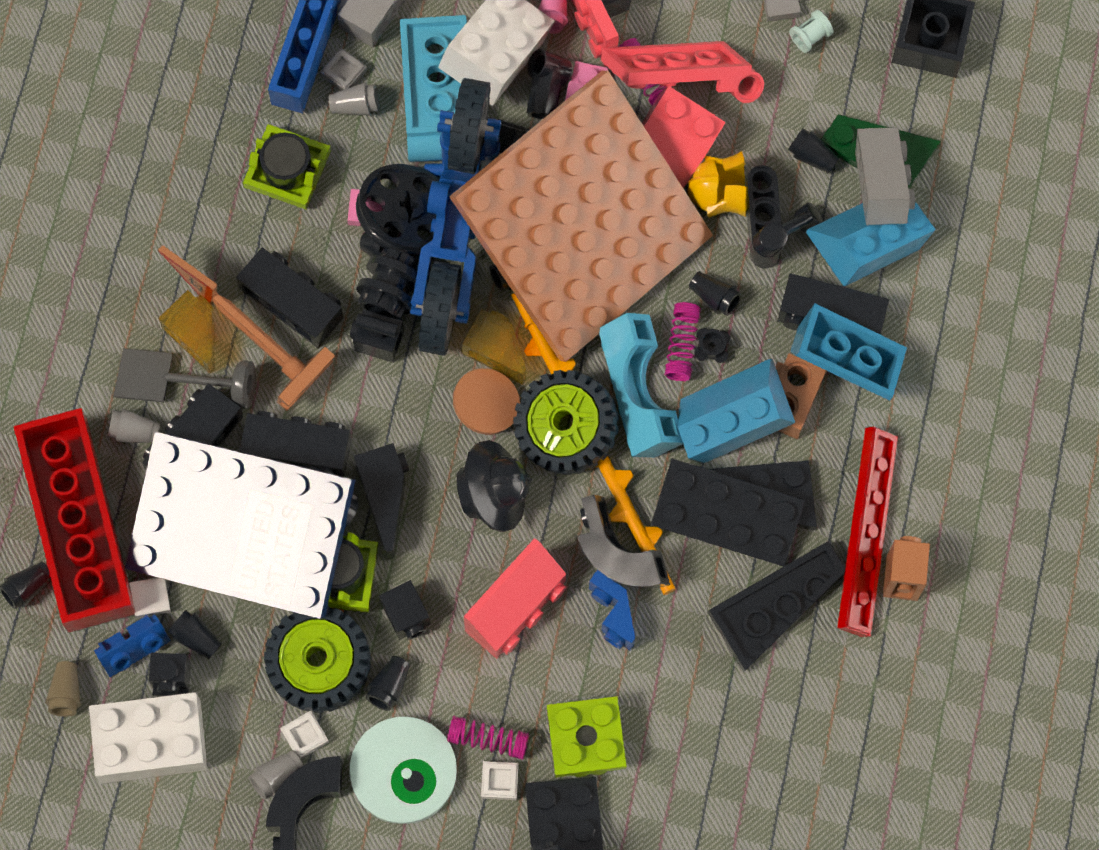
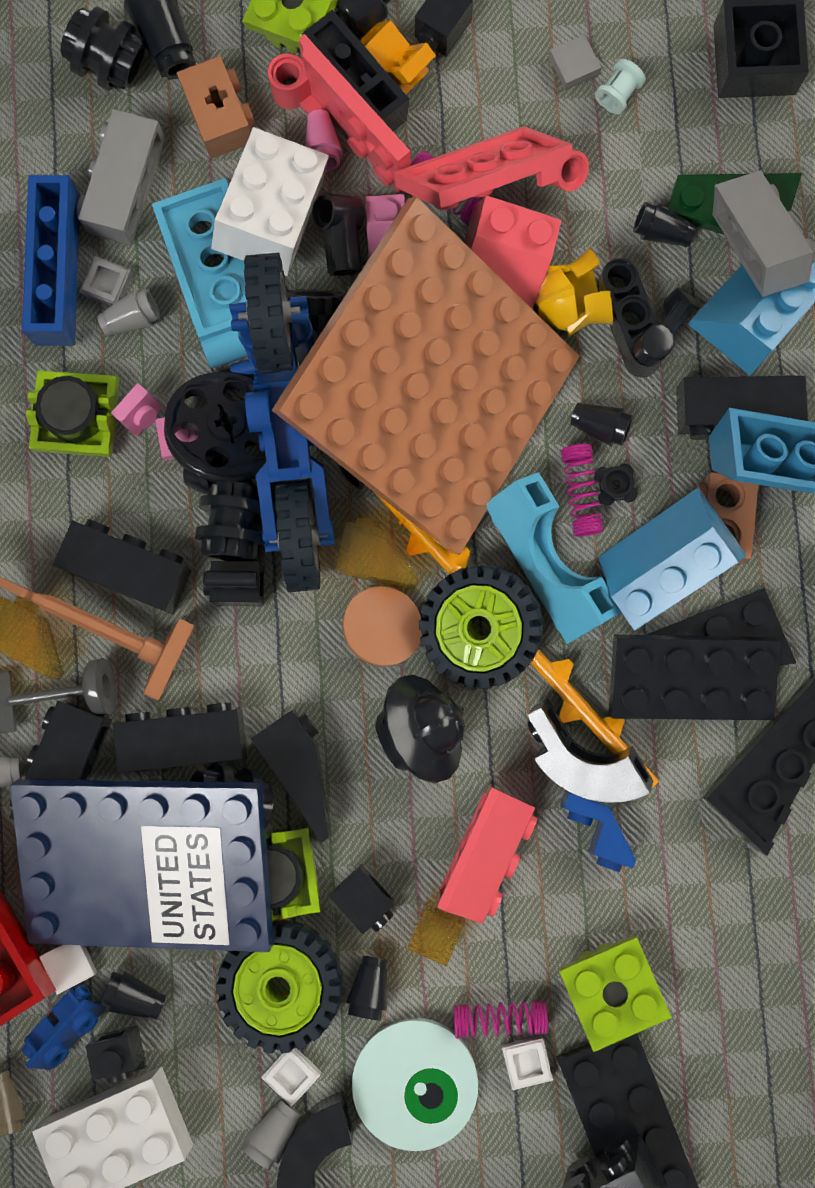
camera: 10 degrees left, 10 degrees up
(338, 177) = (137, 410): none -> bright pink plate
(455, 653) = (435, 934): none -> clear yellow brick

